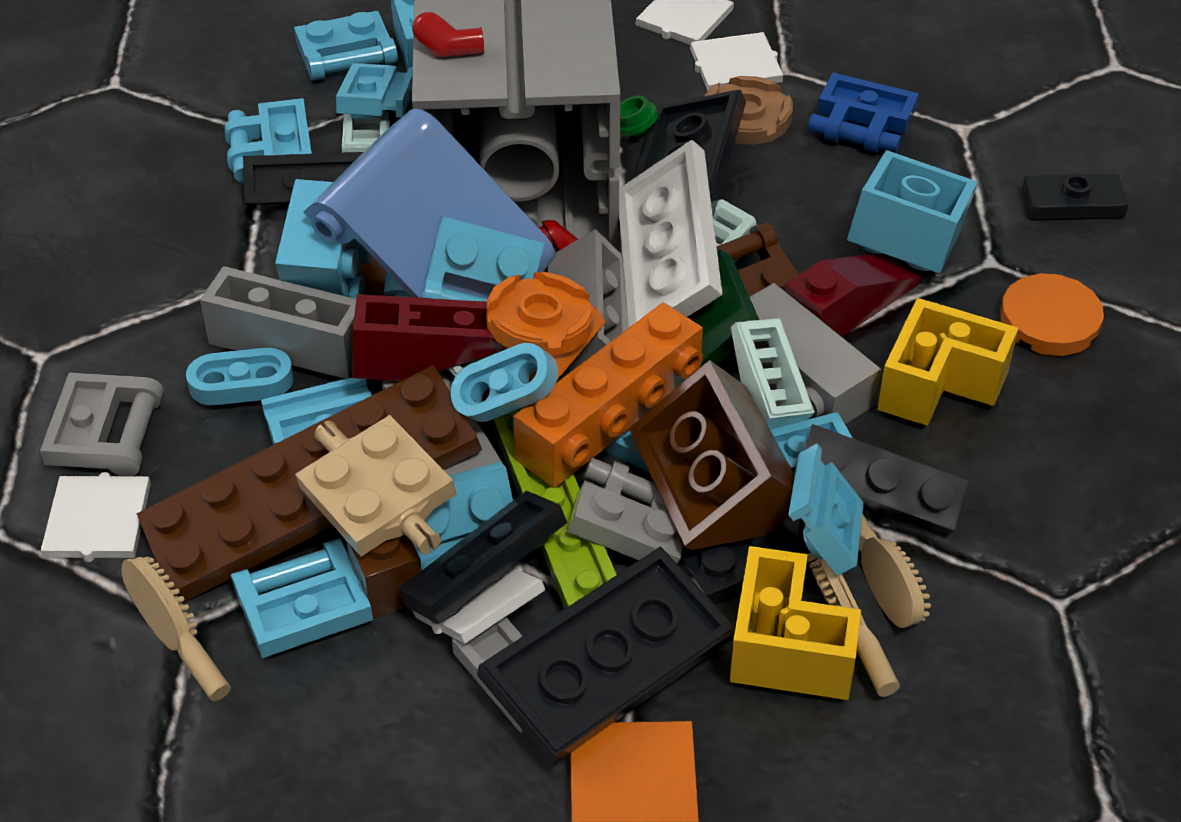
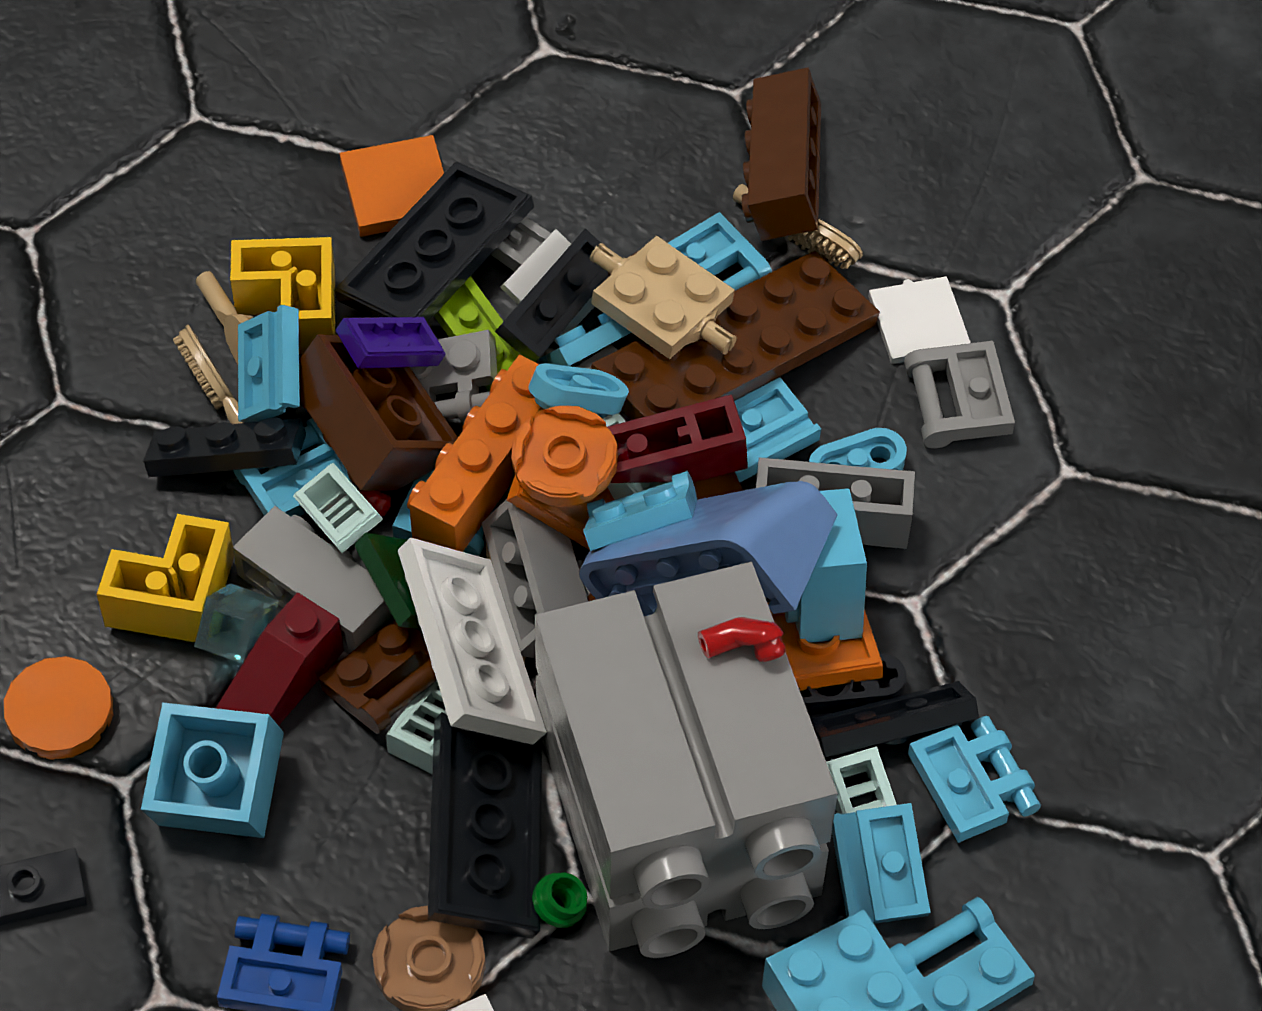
camera: 165 degrees right, 10 degrees up
(149, 677) = (783, 155): none -> reddish brown brick
(688, 491) = (390, 342): none -> dark purple plate
(876, 320) = (234, 621): none -> clear light blue brick

